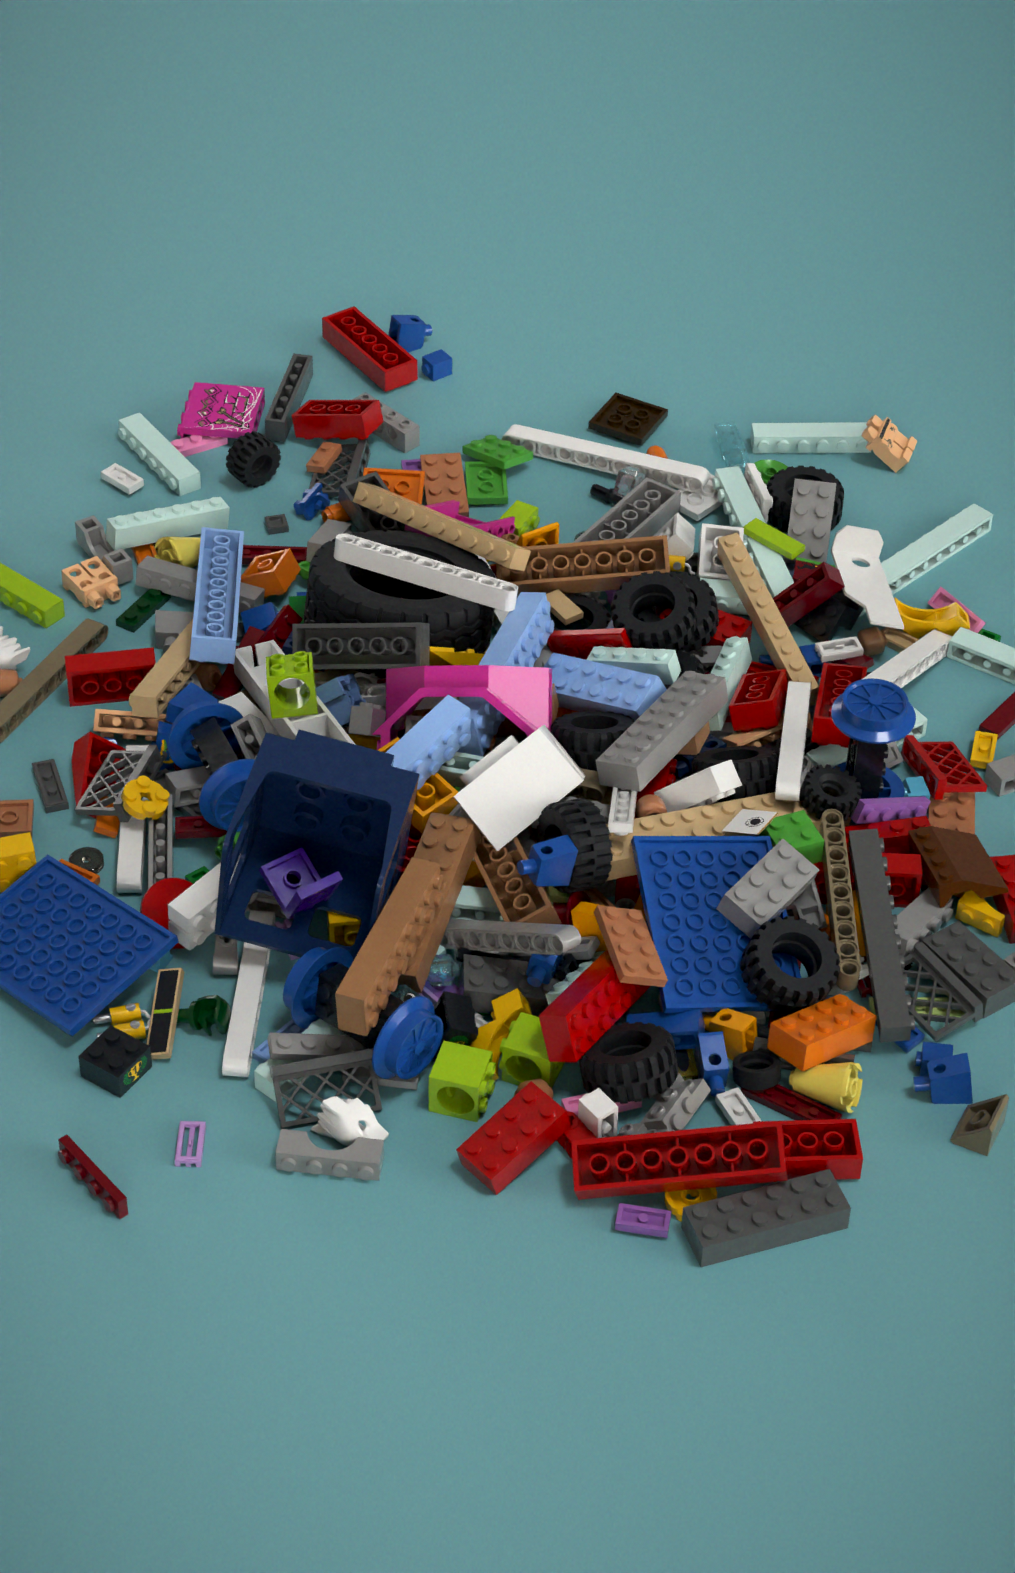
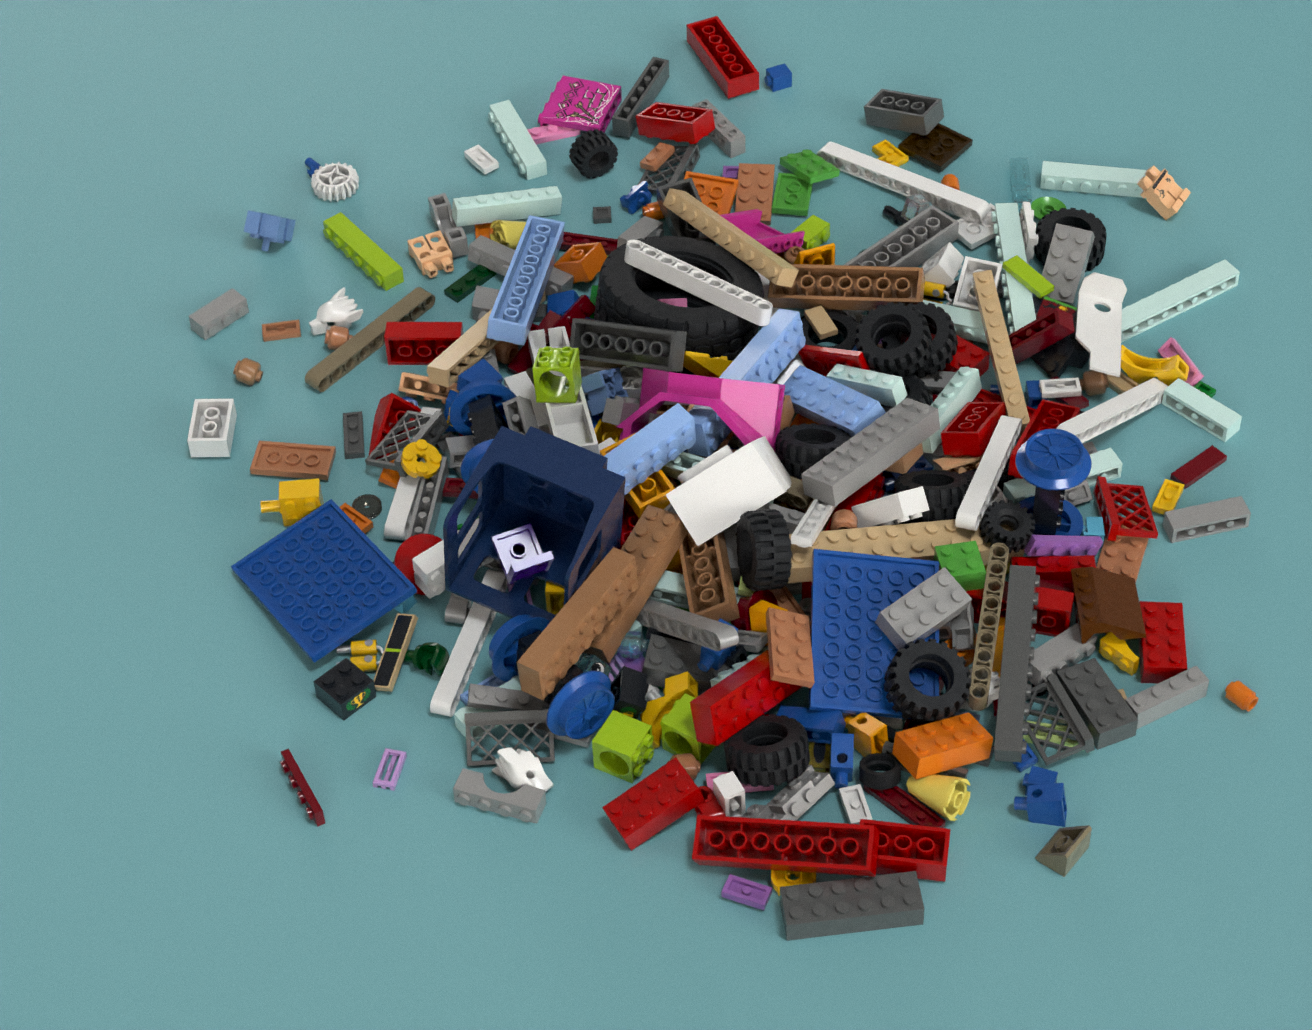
camera: 15 degrees right, 5 degrees up
(409, 331) = (760, 44): blue torso -> none
(550, 862) = (735, 564): blue torso -> none
(580, 430) = (889, 153): none -> yellow tile
(587, 386) = (904, 111): none -> dark grey brick
(750, 821) = (925, 545): white sticker -> none

